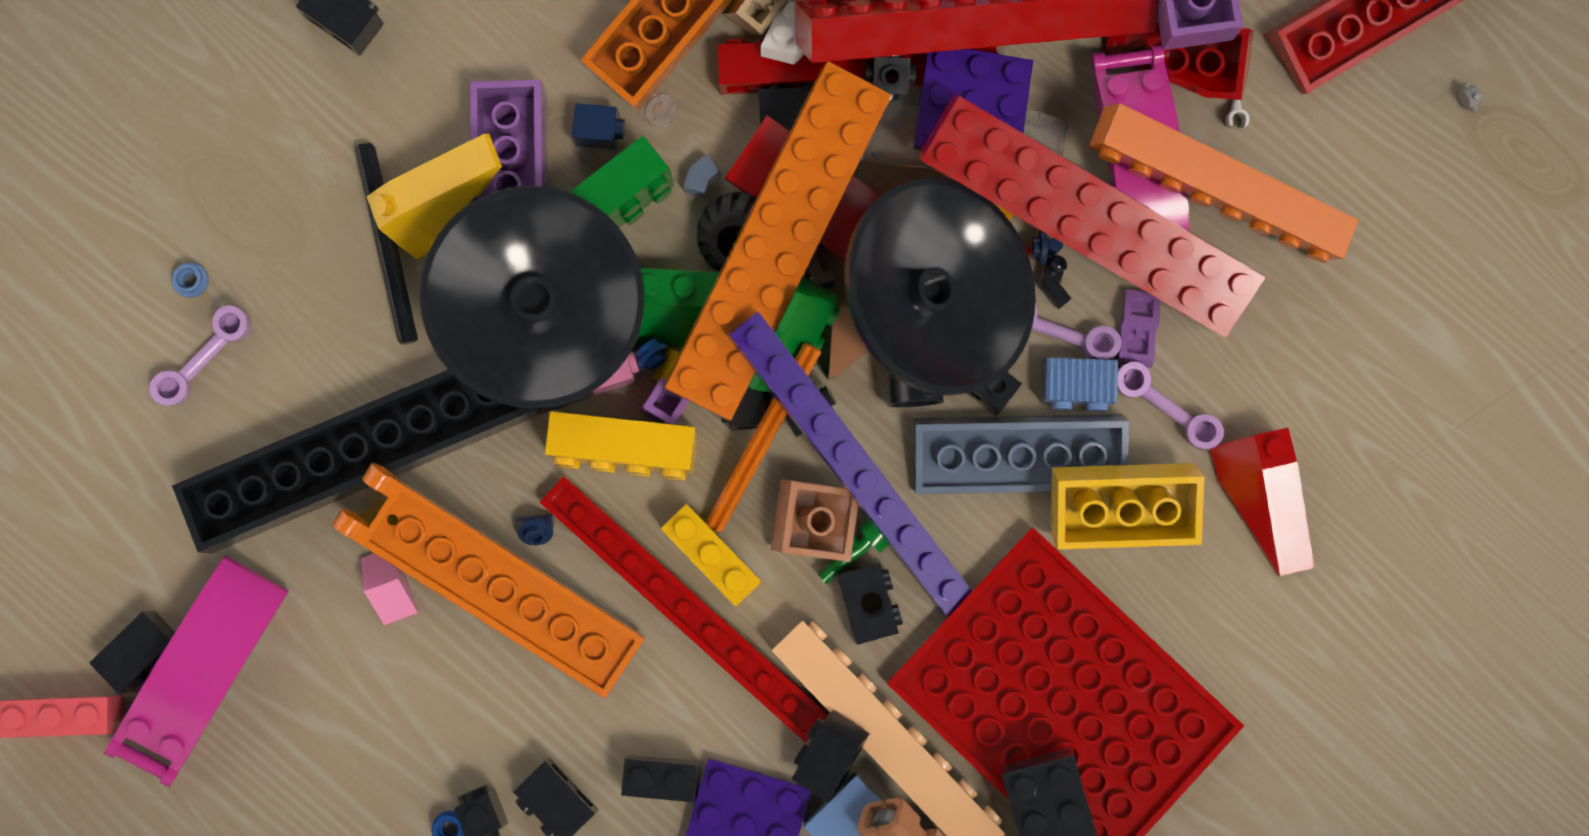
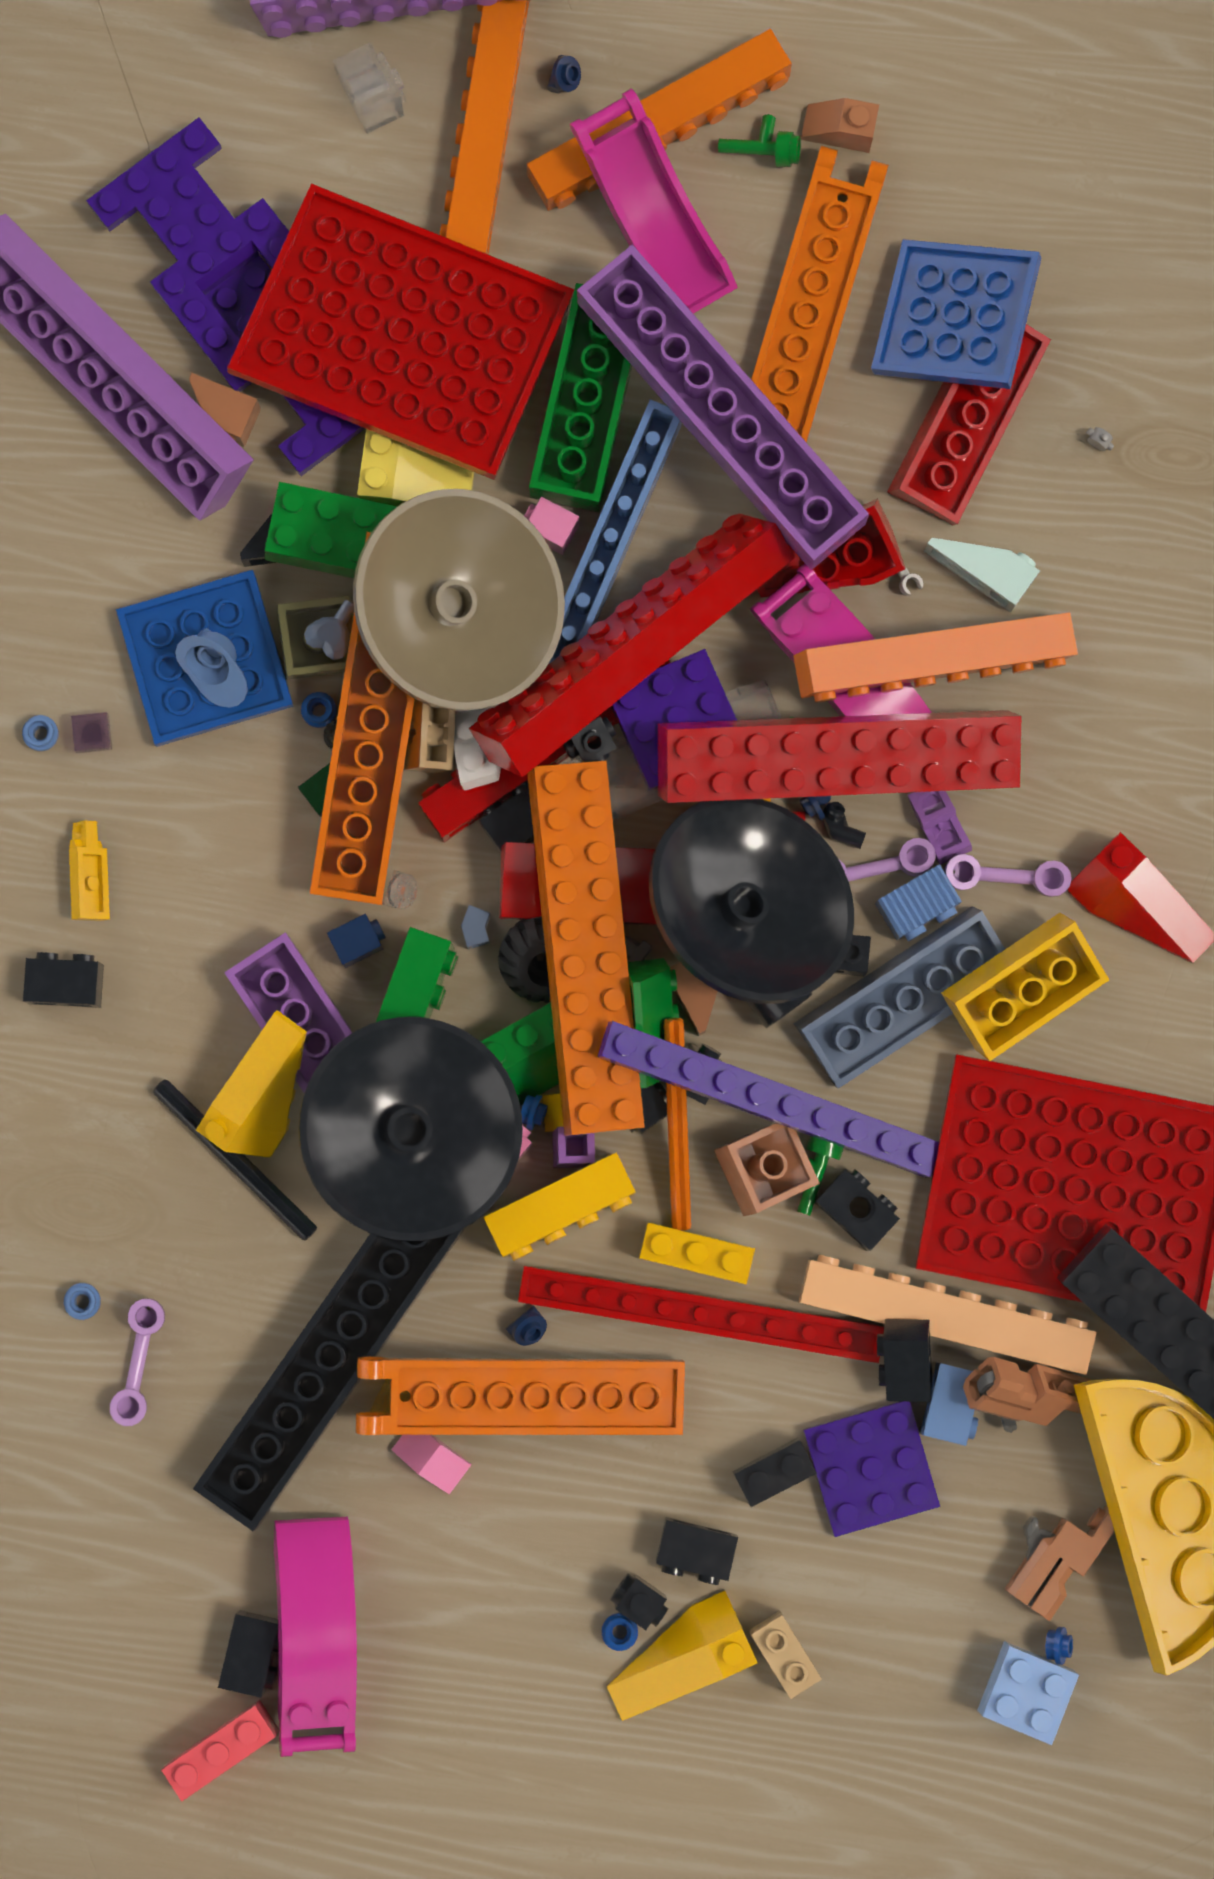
camera: 30 degrees left, 0 degrees up
(1311, 146) = (991, 570): none -> light aqua slope

